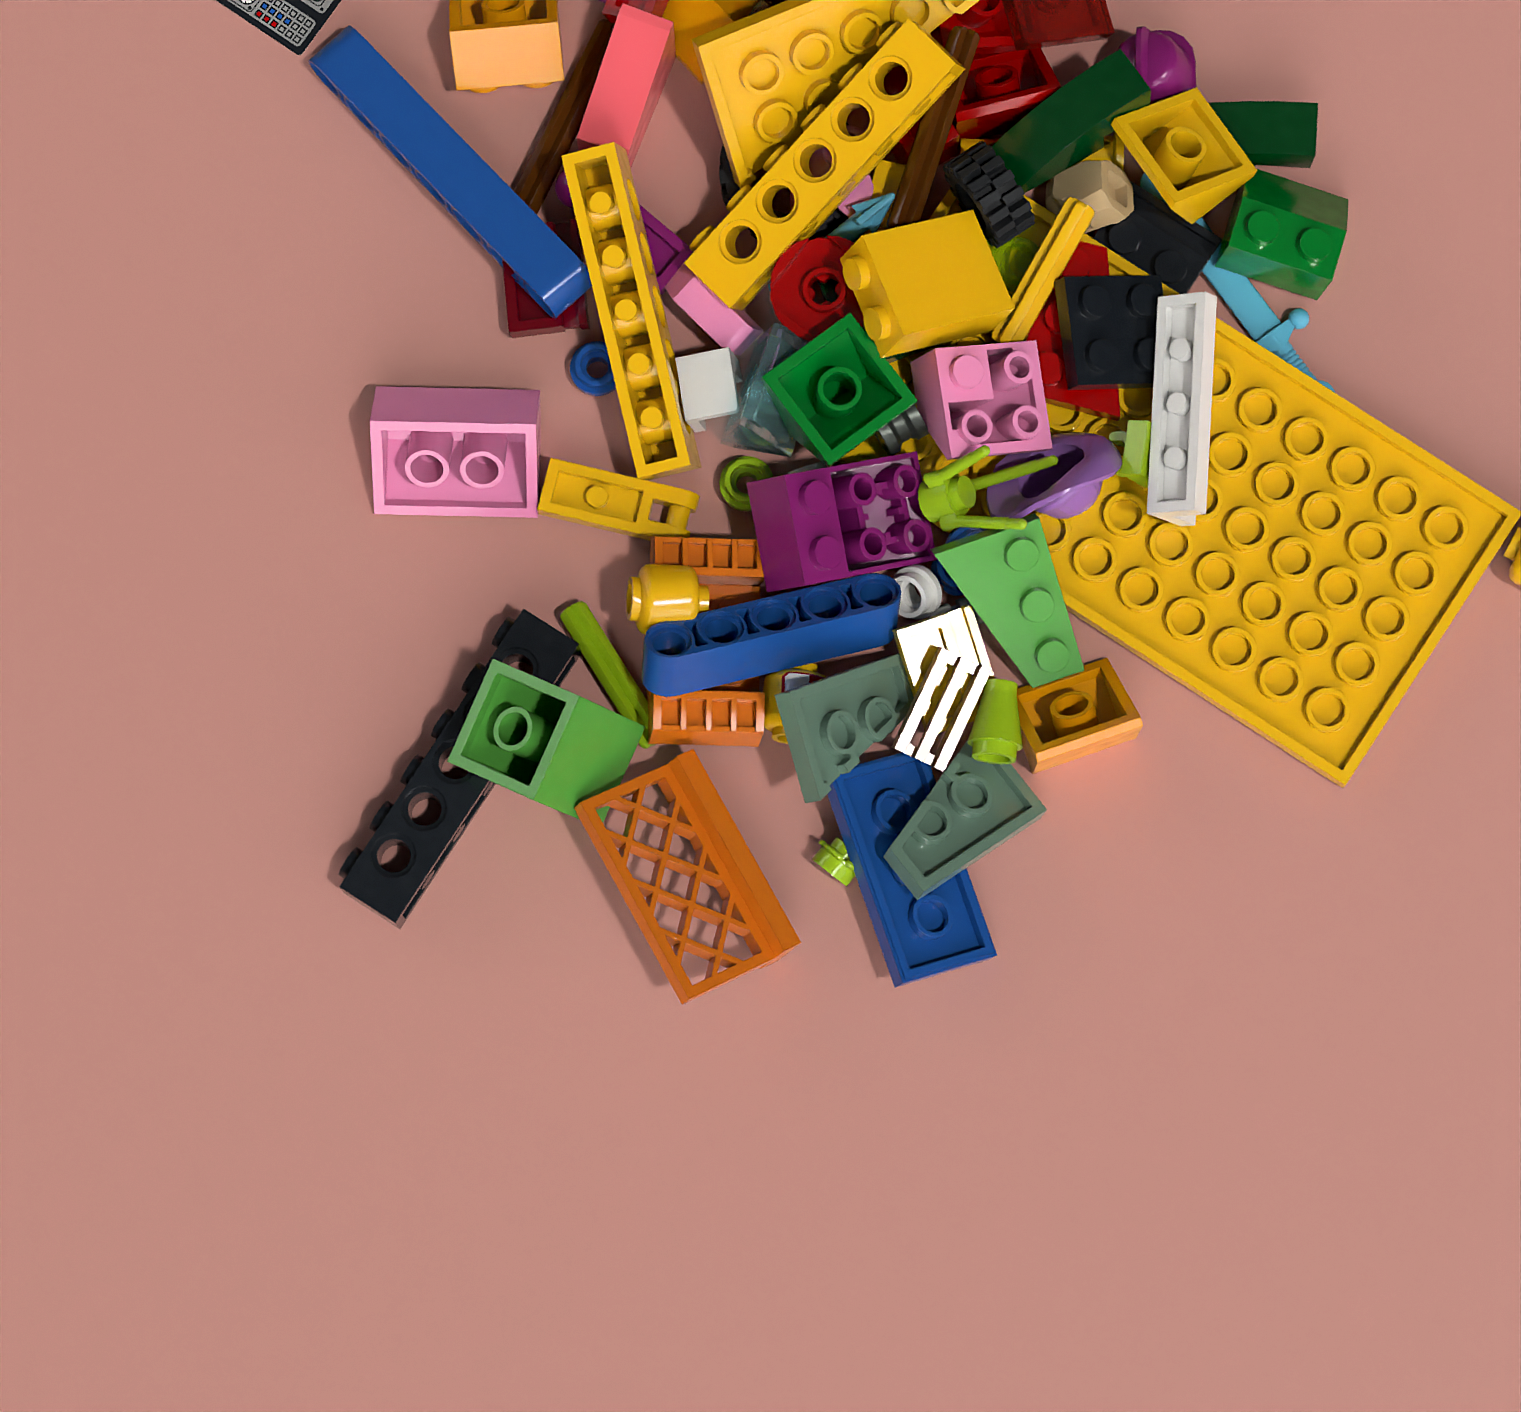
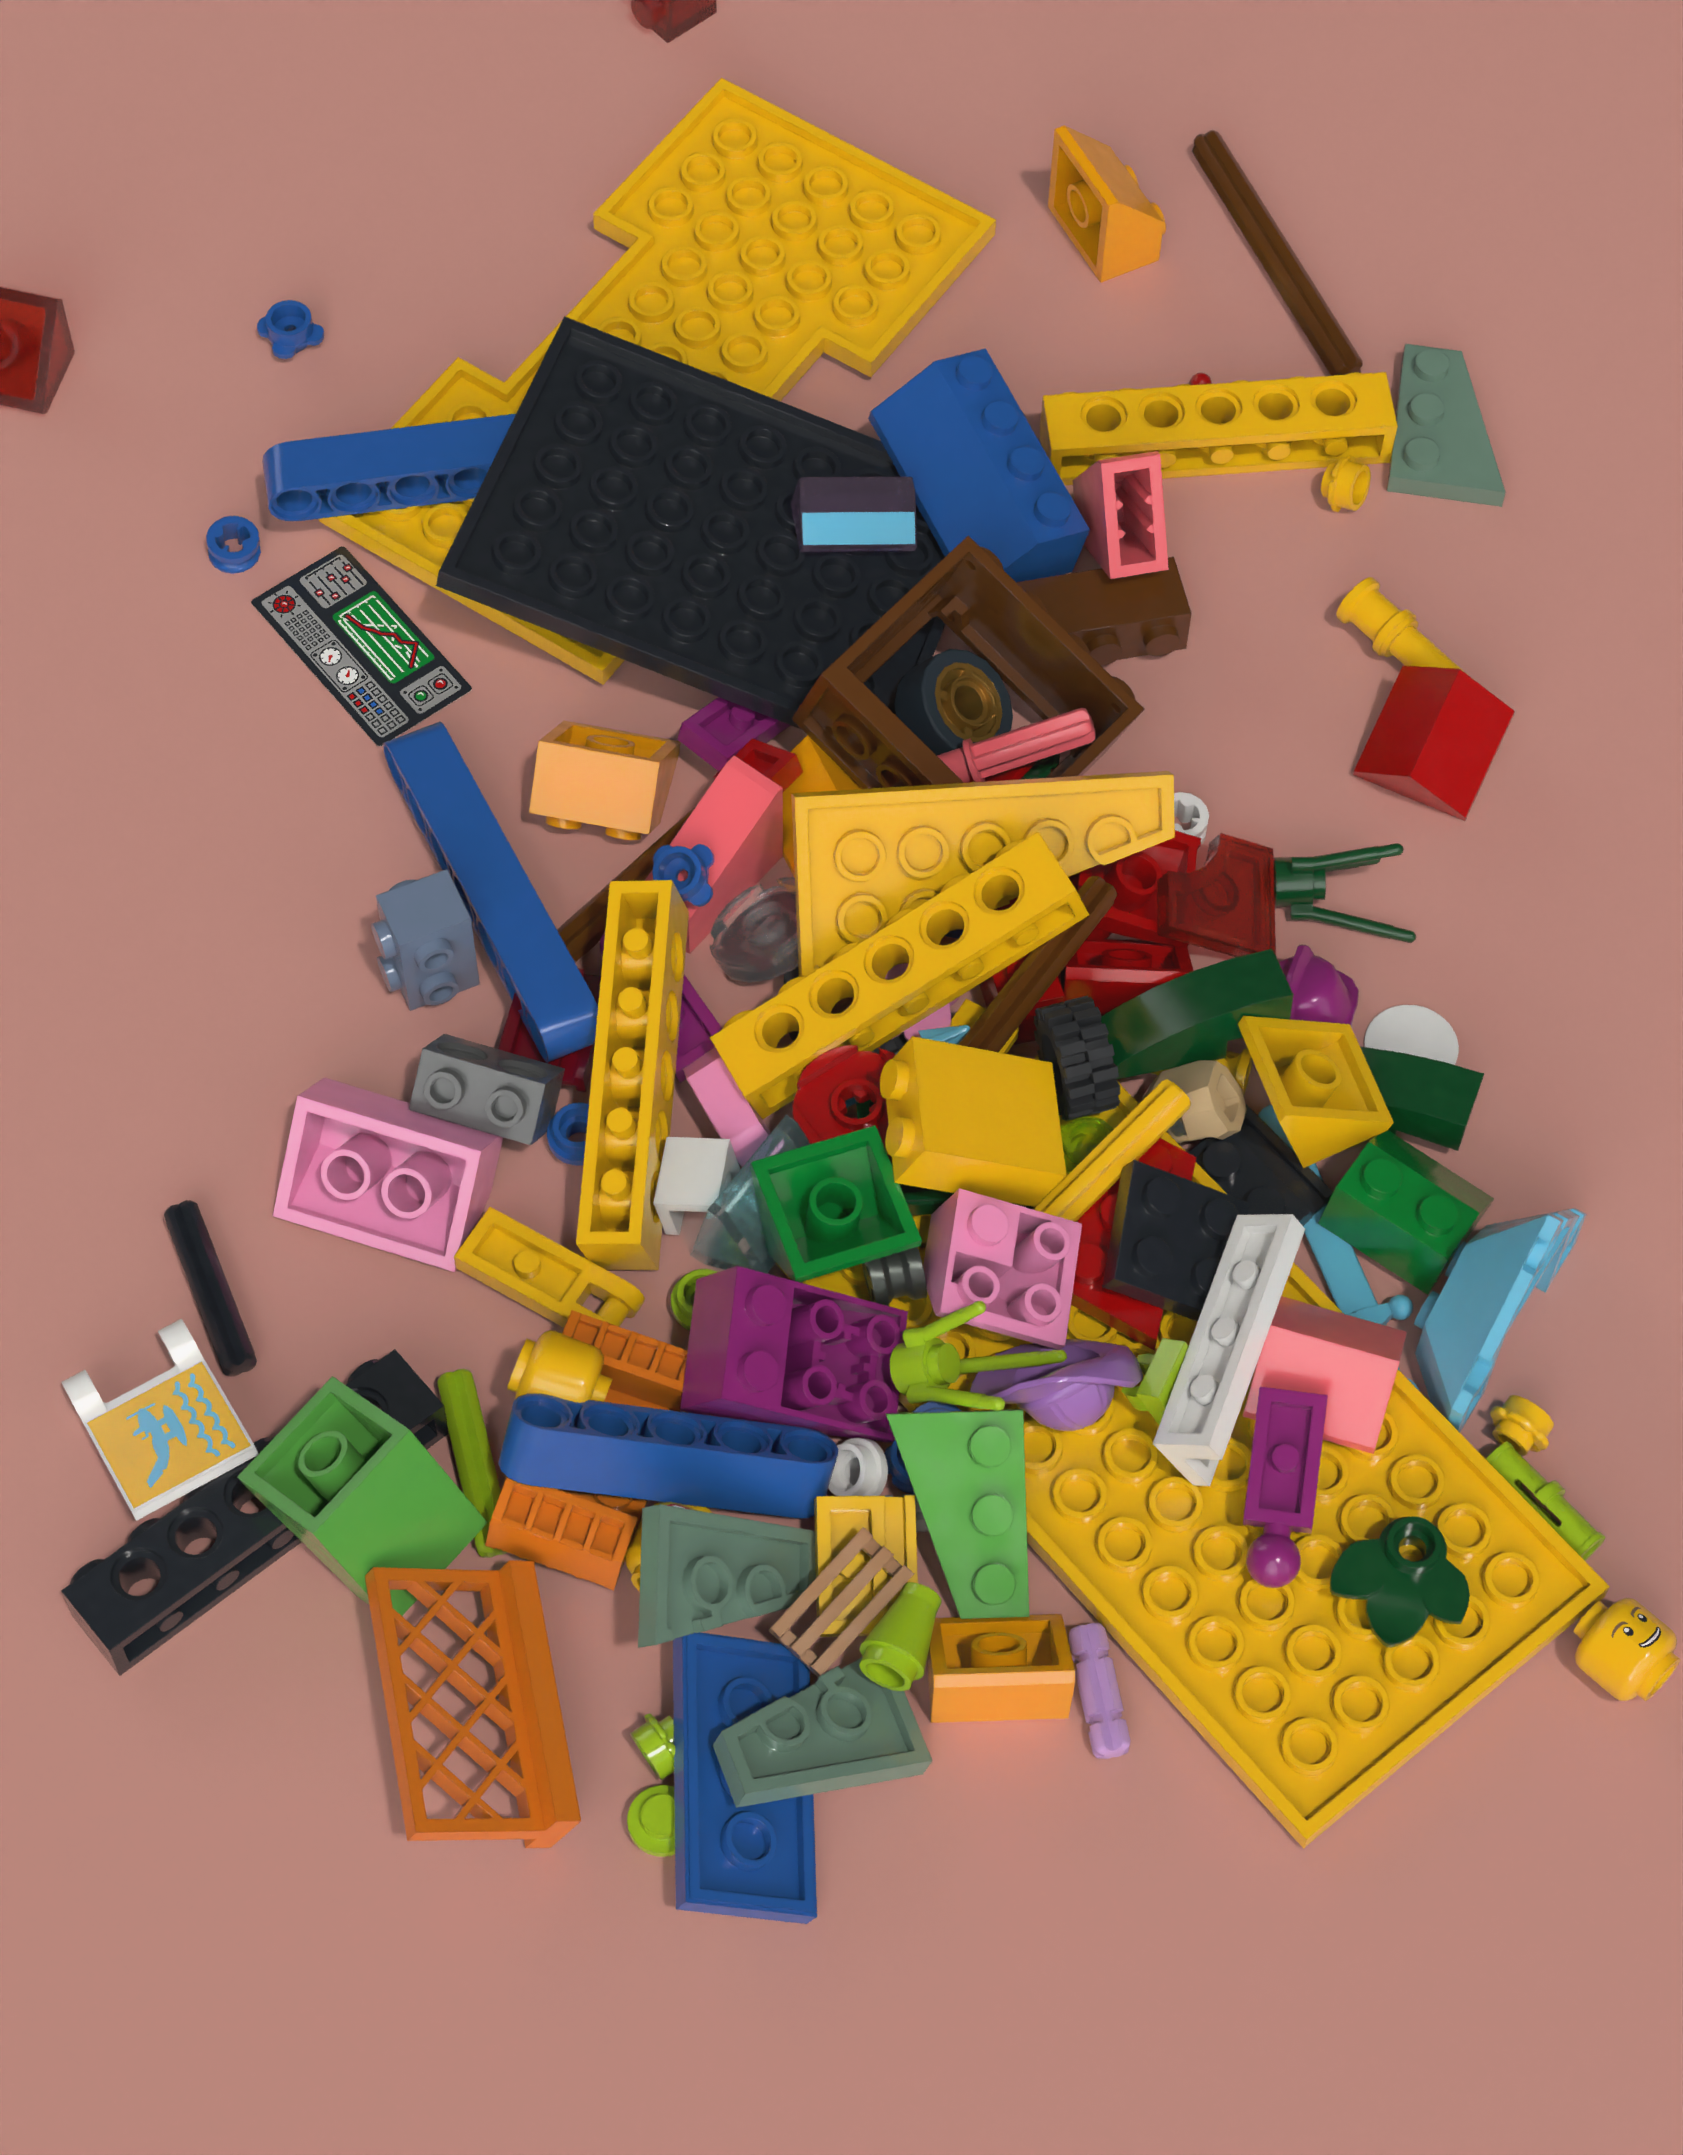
camera: 15 degrees right, 20 degrees down
(348, 592) = (210, 1288): none -> black axle
(366, 730) = (165, 1431): none -> flag
(416, 241) = (425, 940): none -> sand blue brick
(513, 358) = (486, 1089): none -> dark grey brick
(620, 108) = (672, 860): none -> blue plate
(685, 142) = (757, 933): none -> clear tile
(851, 919) = (653, 1821): none -> lime plate
(1154, 712) = (1099, 1691): none -> lavender axle
(1245, 73) = (1413, 1032): none -> white sticker
(1252, 507) = (1283, 1480): none -> magenta plate
(1264, 402) = (1335, 1357): none -> coral slope
(1364, 567) = (1399, 1590): none -> dark green plate
(1373, 302) = (1480, 1302): none -> medium azure wedge
(1420, 394) = (1522, 1425): none -> yellow plate
(1454, 452) = (1573, 1526): none -> lime pin

